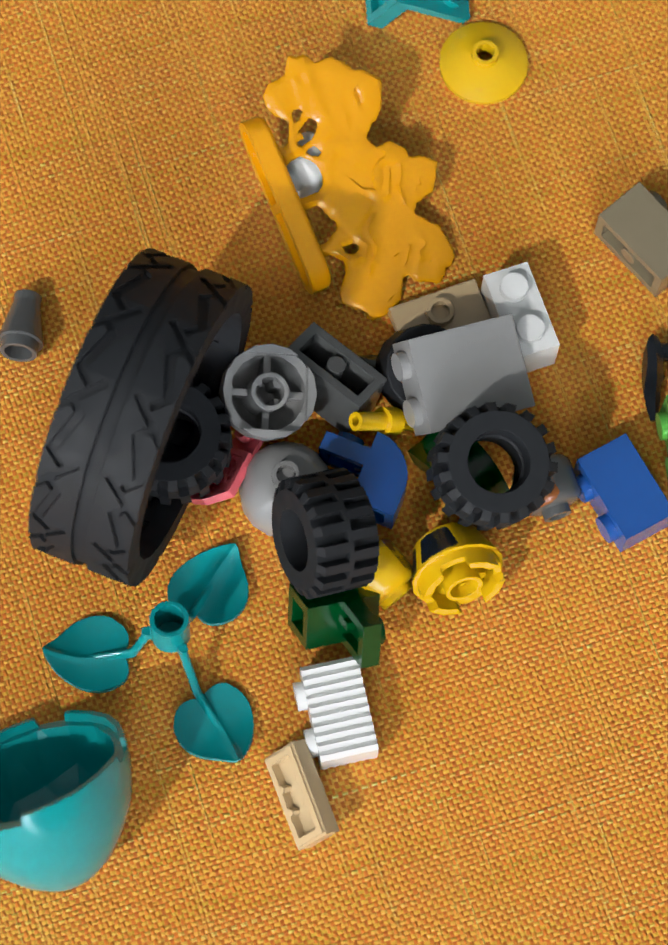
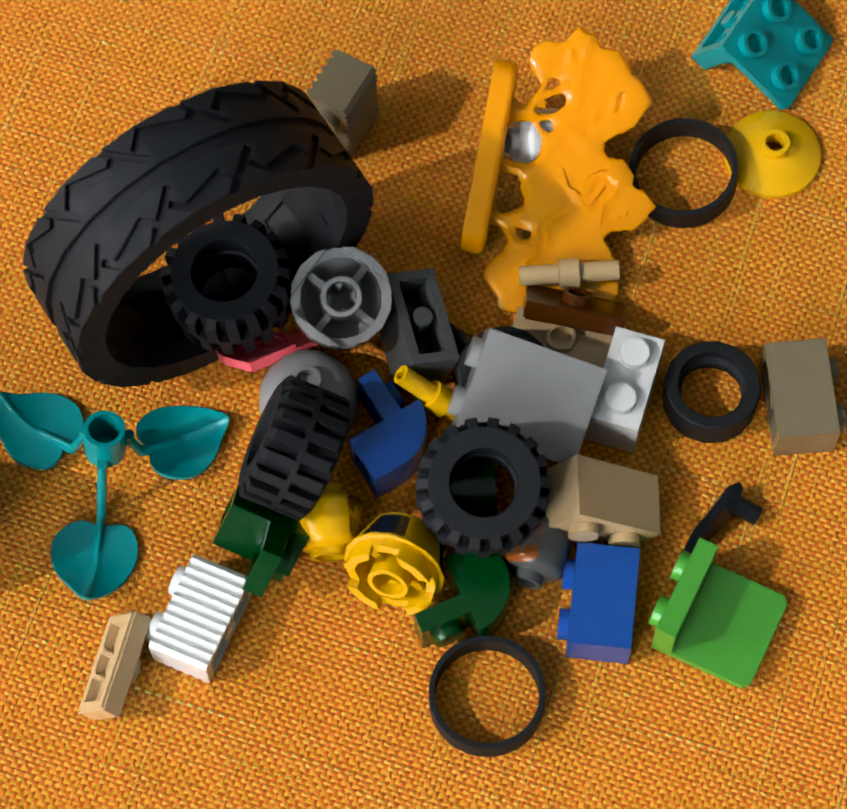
camera: 40 degrees right, 5 degrees down
(135, 225) = (346, 98): none -> dark tan brick
(410, 256) = (569, 272): none -> tan bar
(434, 283) = (573, 309): none -> reddish brown plate
(447, 79) = (696, 129): none -> black tyre
(536, 554) = (479, 601): none -> dark green brick
(578, 415) = (603, 502): none -> tan brick
(588, 246) = (721, 357): none -> black tyre
(616, 581) = (497, 644): none -> black tyre

